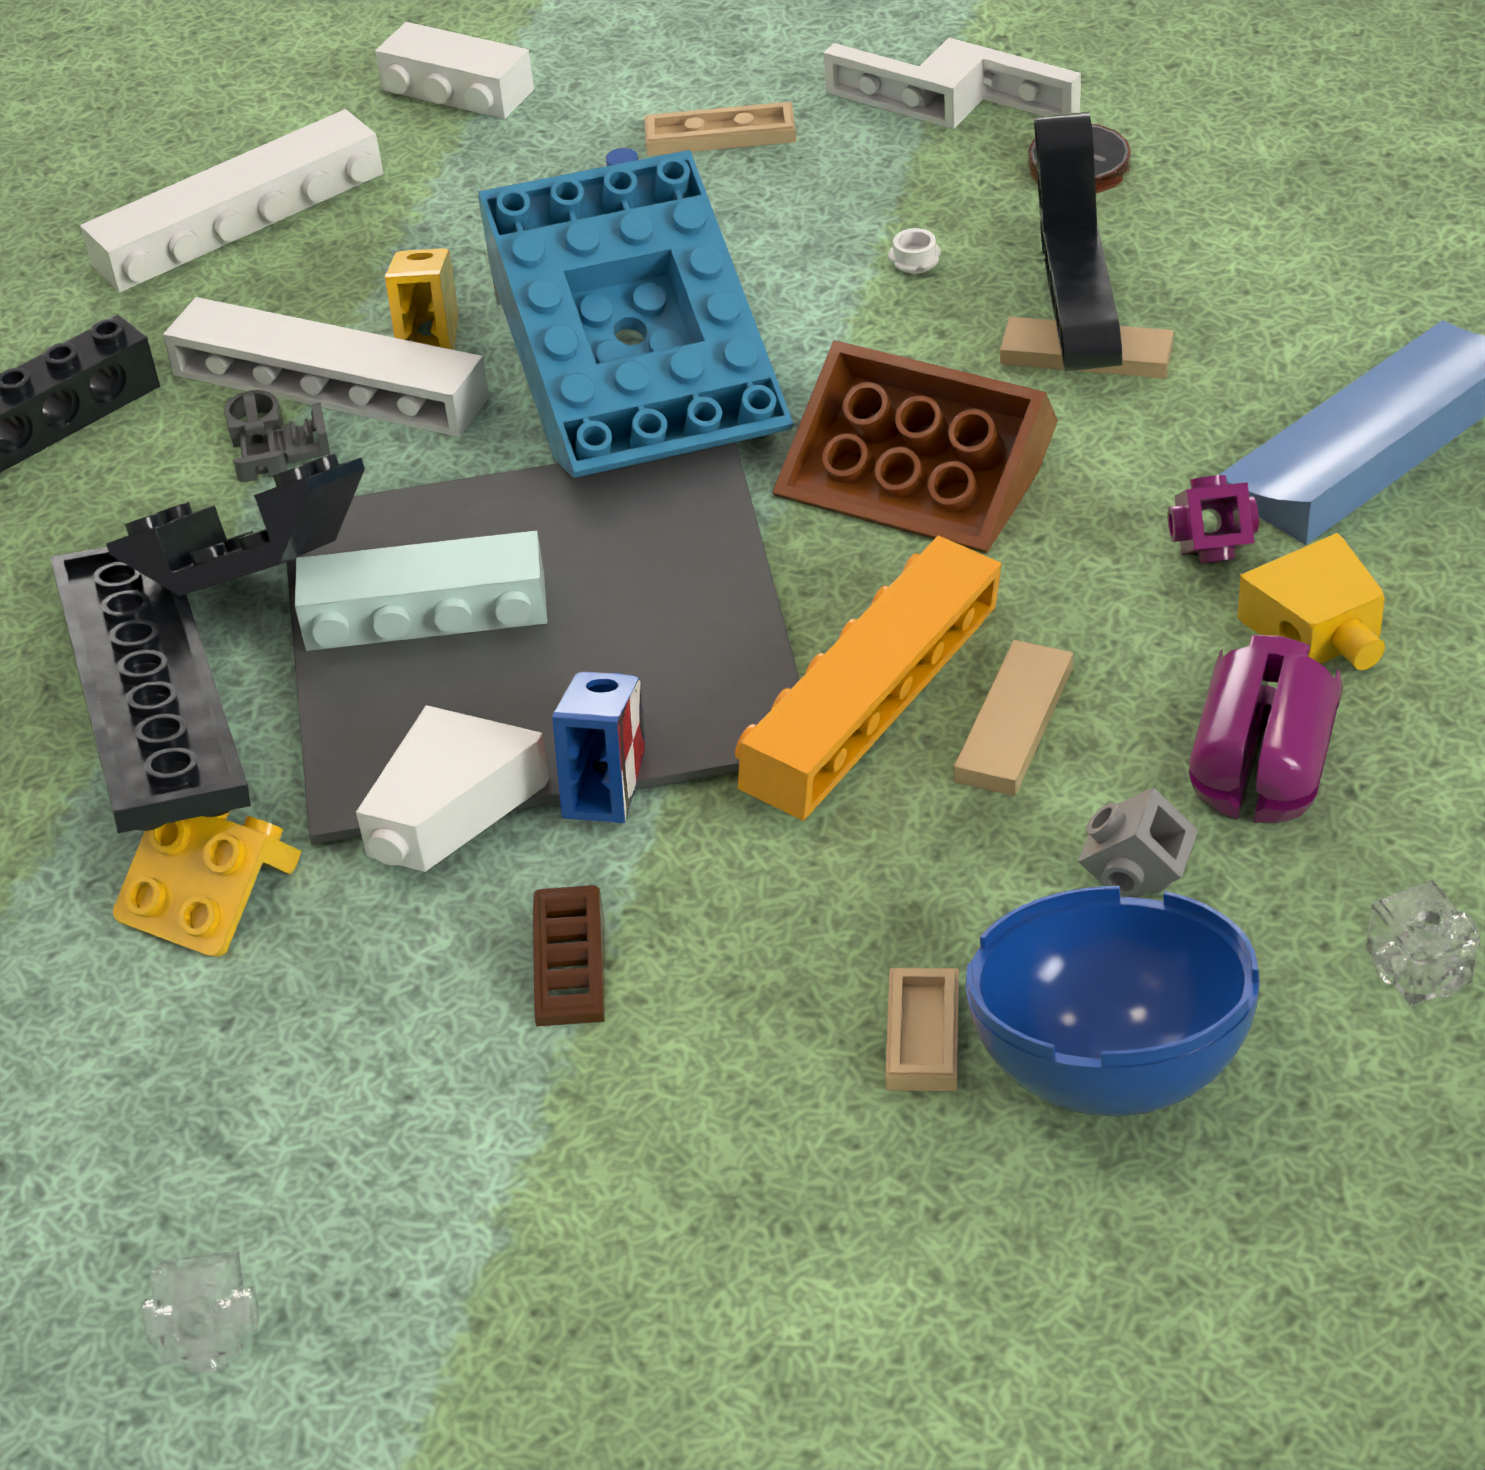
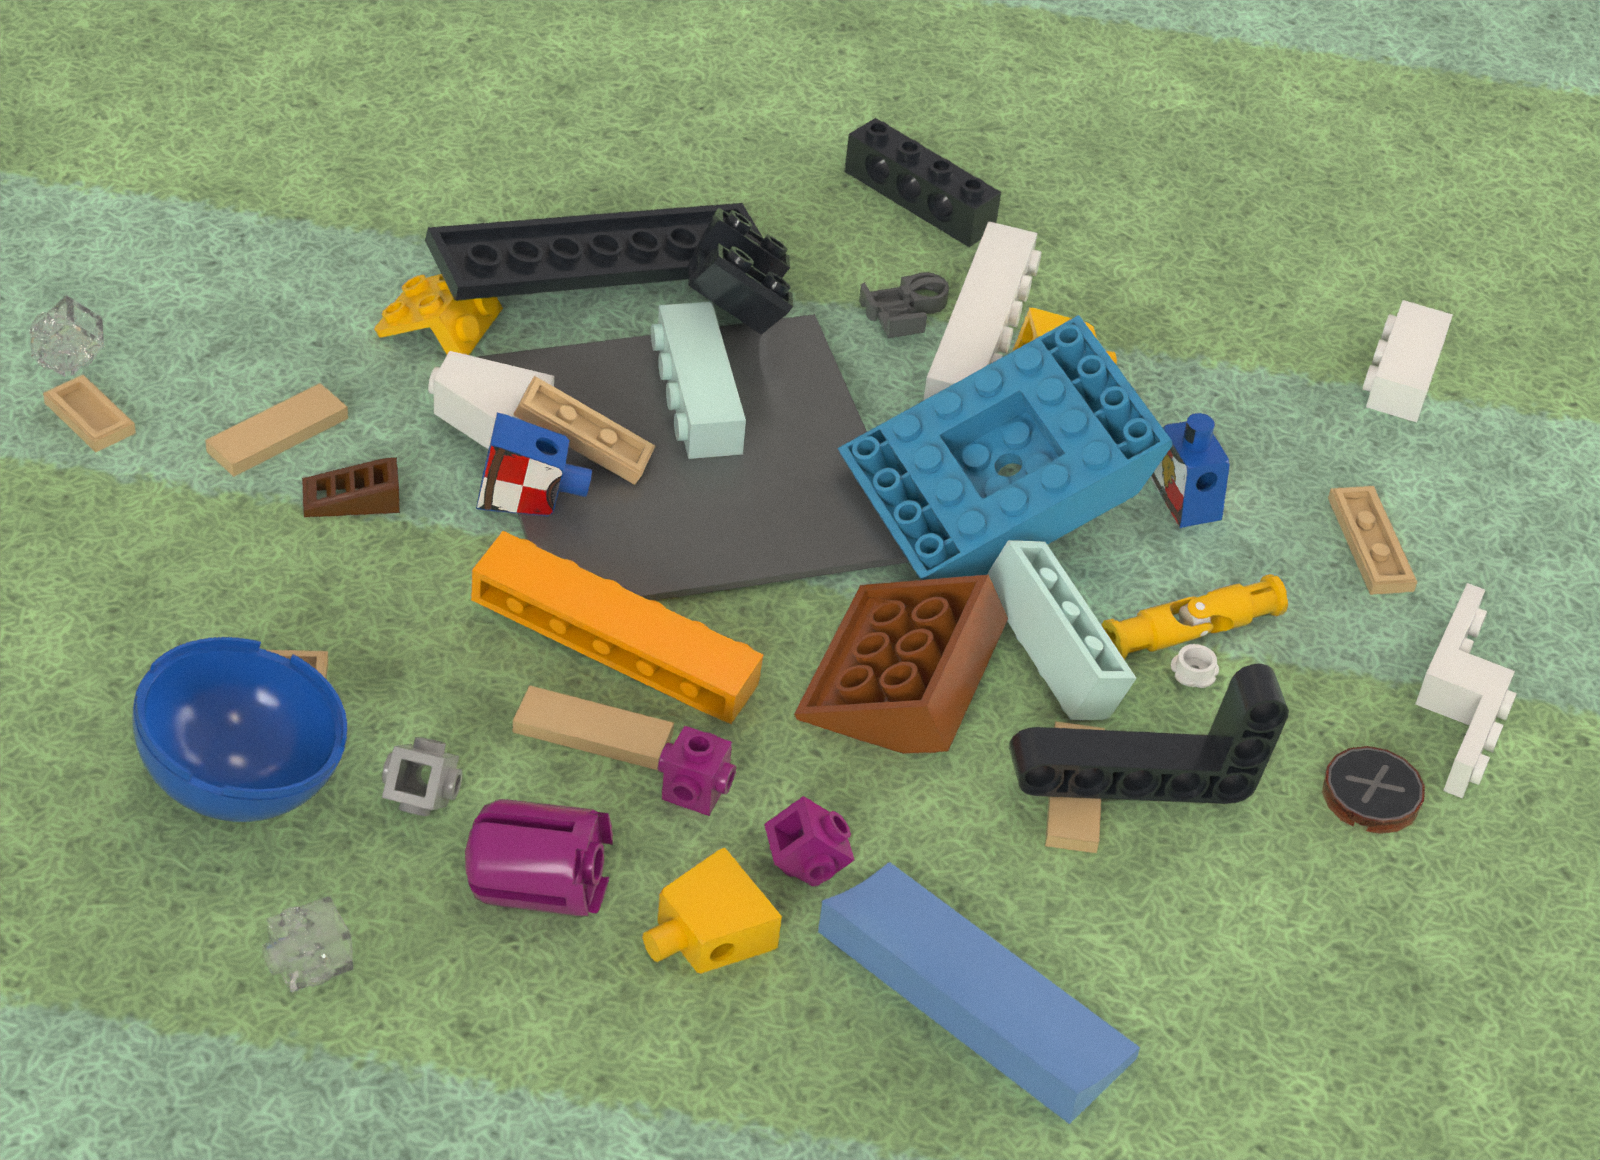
camera: 75 degrees right, 0 degrees up
(231, 200) = (1196, 252): white brick -> none
(351, 1292) = (89, 413): none -> tan tile
(424, 1055) = (276, 429): none -> tan tile
(522, 687) = (586, 430): none -> tan tile
(846, 245) = (1211, 613): none -> yellow piece
(900, 317) = (1060, 631): none -> light aqua brick
(1103, 611) = (696, 770): none -> magenta brick

